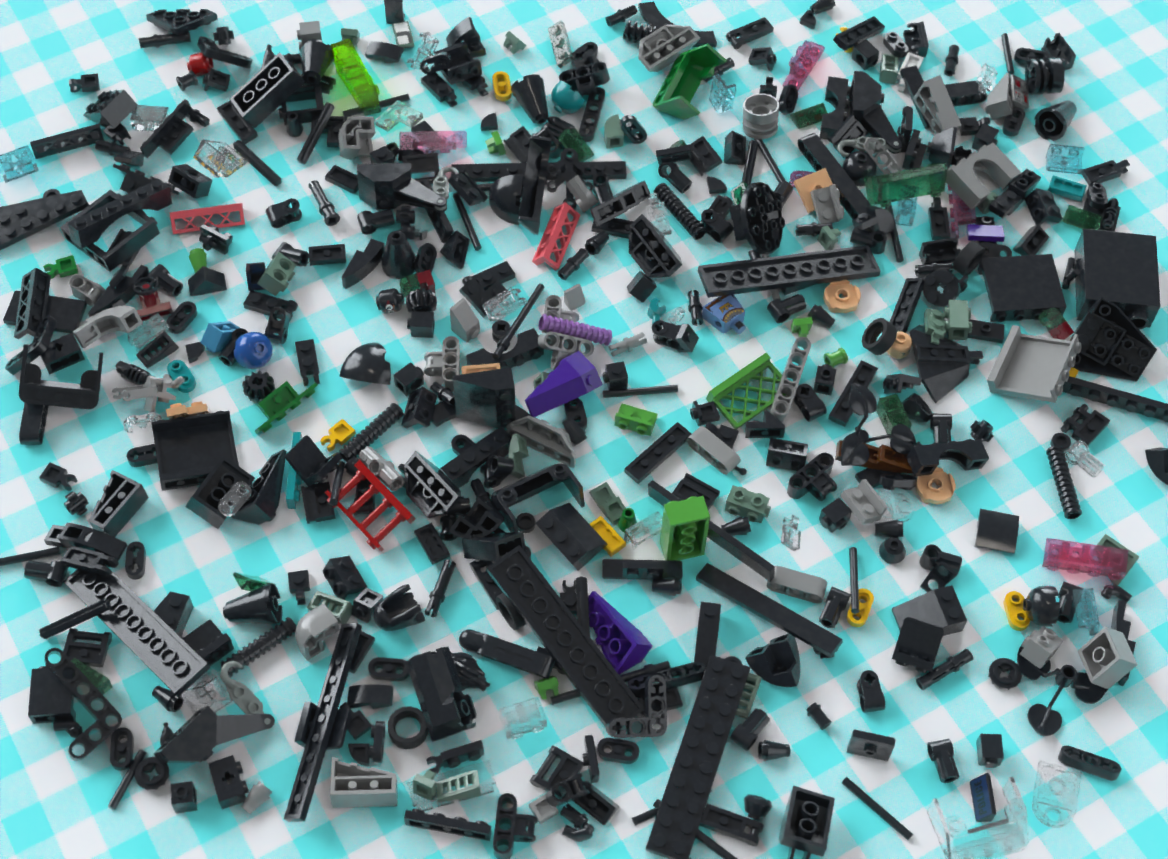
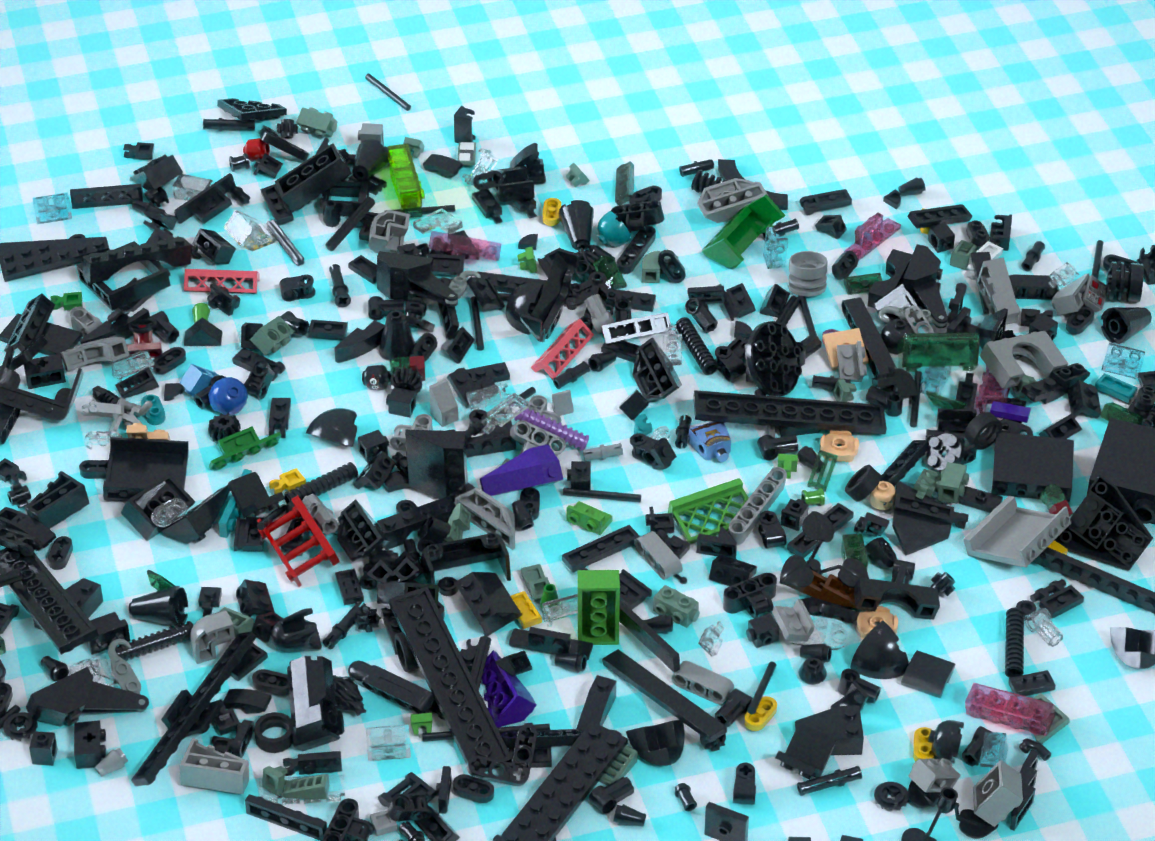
camera: 15 degrees right, 15 degrees down
(255, 24) = (321, 123): none -> sand green brick
(461, 579) = (367, 619): none -> black gear
(531, 326) = (504, 412): none -> clear plate
(617, 602) = (515, 663): none -> black slope
(768, 88) = (826, 251): black plate -> none
(834, 343) = (818, 484): none -> clear green tile
(924, 232) = (944, 401): none -> clear green slope
(951, 522) = (880, 655): none -> black brick
(1070, 273) = (1089, 465): black hose -> none
(1092, 523) = (1032, 683): none -> black plate

